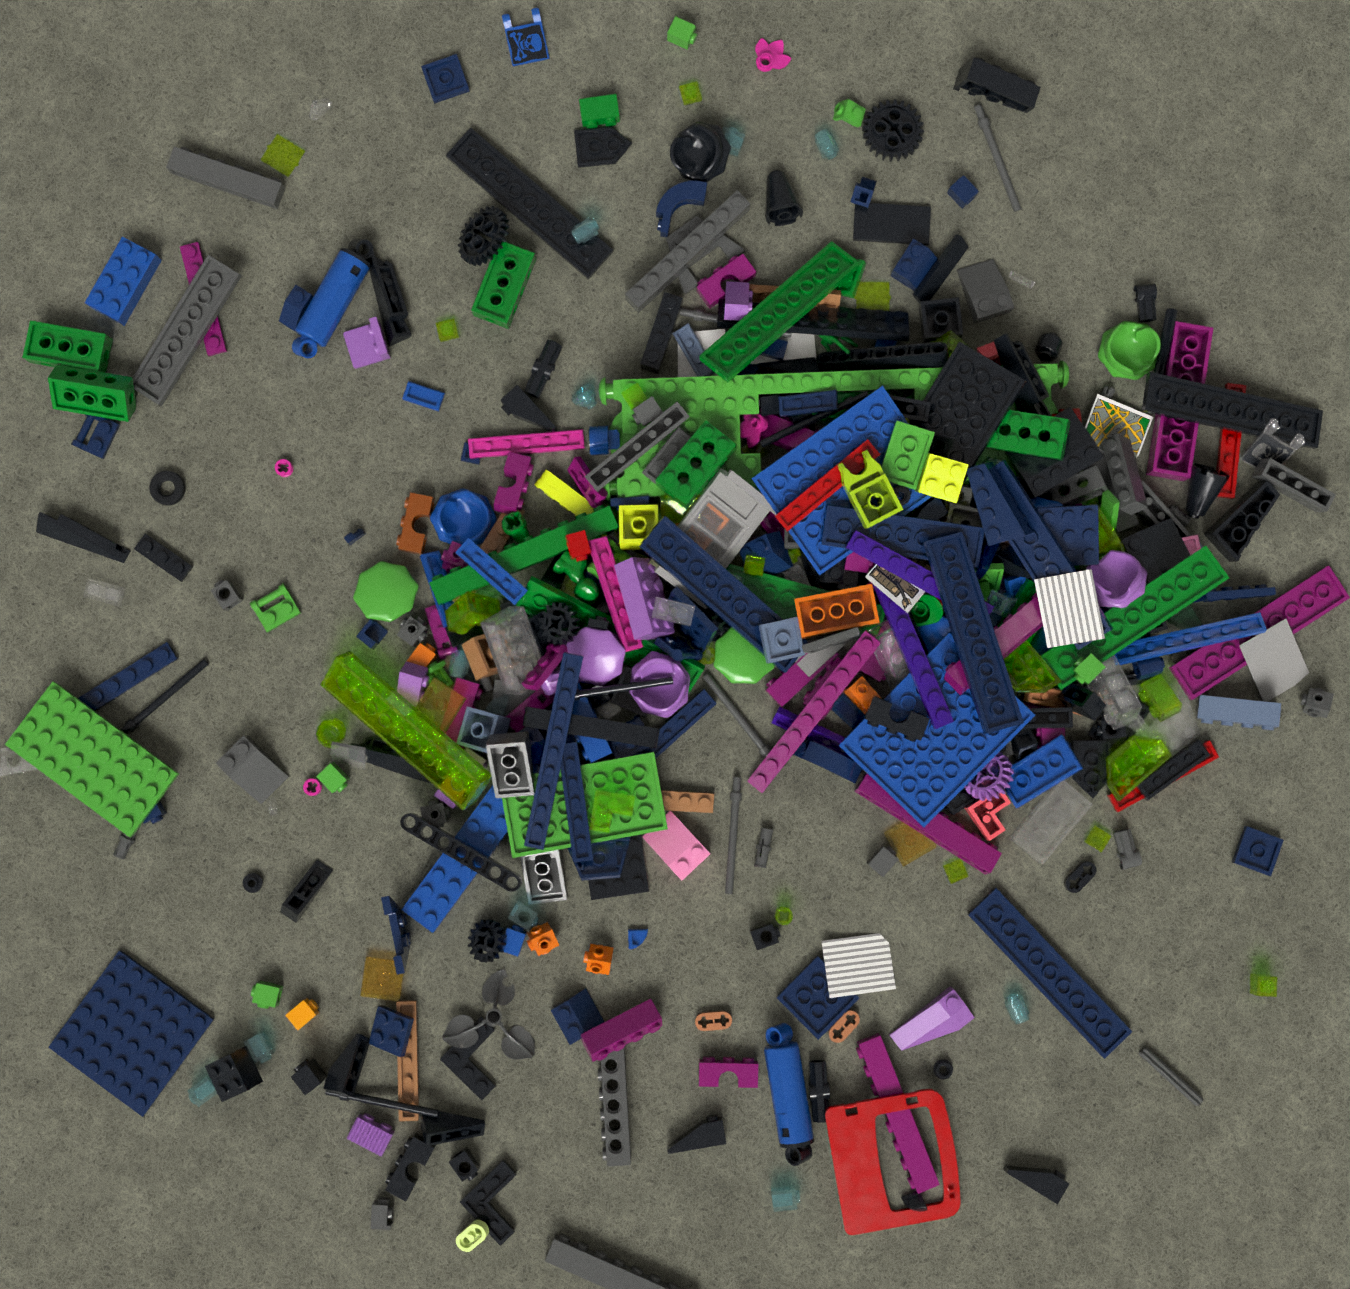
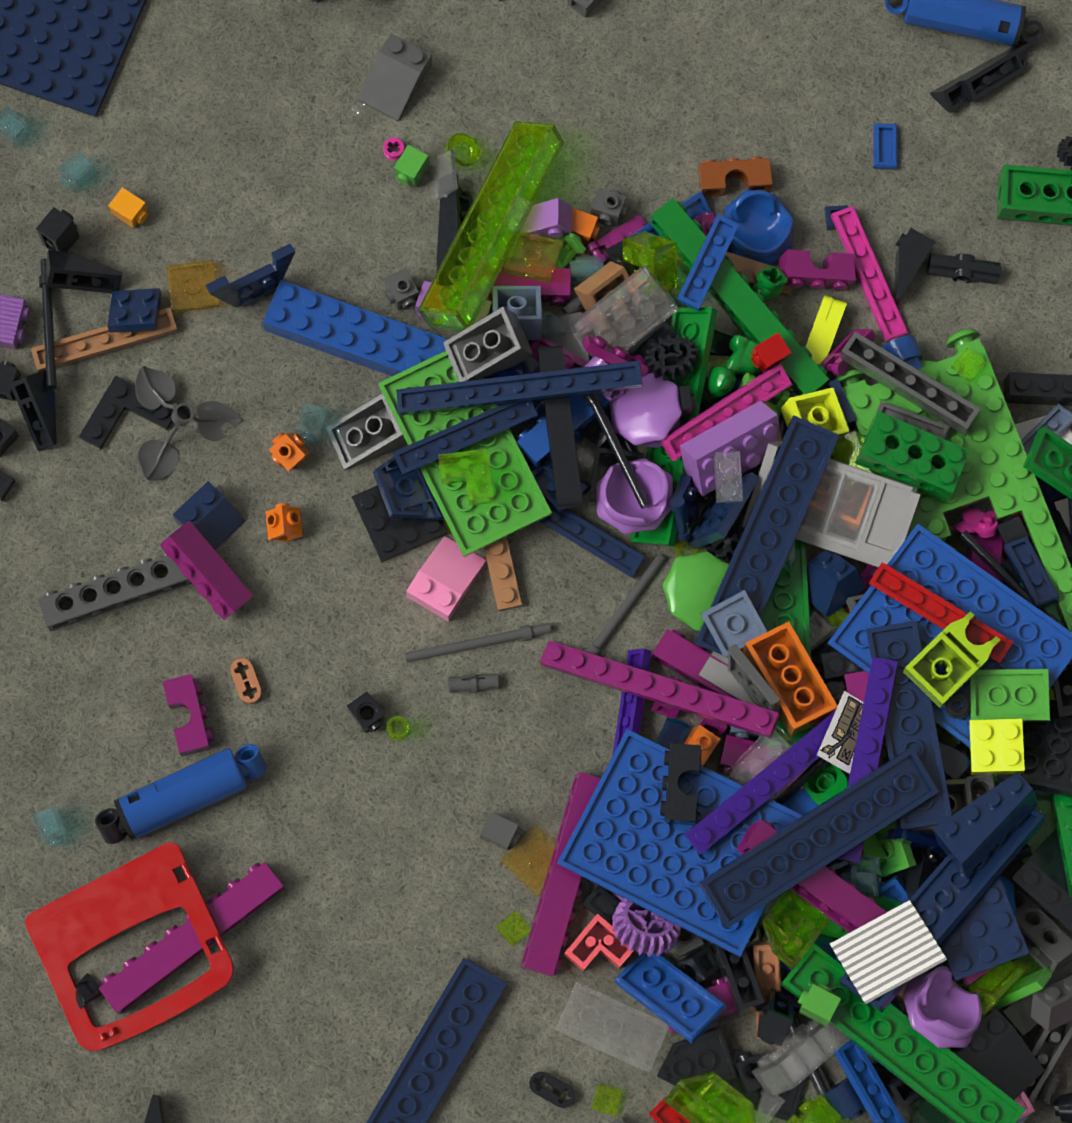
camera: 70 degrees right, 10 degrees down
(234, 1074) = (39, 150): black brick -> none
(258, 882) = (264, 120): black plate -> none
(266, 994) = (140, 163): bright green brick -> none
(278, 613) = (582, 58): bright green plate -> none
(284, 462) = (750, 11): dark pink bush -> none
(305, 891) = (270, 172): black slope -> none
(352, 538) = (694, 113): dark blue tile -> none
(367, 344) = (924, 68): medium lavender bracket -> none
(372, 634) = (591, 164): dark blue panel -> none
(385, 591) = (645, 163): bright green piece -> none
(447, 330) = (971, 151): clear neon green plate -> none
(451, 851) = (368, 313): black beam -> none
(487, 941) = (271, 386): black gear -> none
(514, 940) = (278, 419): blue brick -> none
(585, 396) = (947, 324): clear light blue brick -> none
(636, 937) = (321, 562): blue tile -> none
(646, 411) = (957, 380): dark grey brick -> none
(703, 1135) = (104, 706): black slope -> none
(754, 565) = (813, 570): clear neon green plate -> none
(810, 1001) = (308, 799): dark blue plate -> none
(819, 1089) = (197, 830): black piece -> none
(829, 760) = (604, 729): dark blue arch -> none
(847, 1029) = (284, 836): nougat beam -> none
(858, 965) = (362, 838): sticker -> none
(939, 1017) = (321, 956): medium lavender wedge -> none
(949, 1069) = (253, 981): black plate -> none
(1017, 1008) = (363, 1053): clear light blue brick -> none

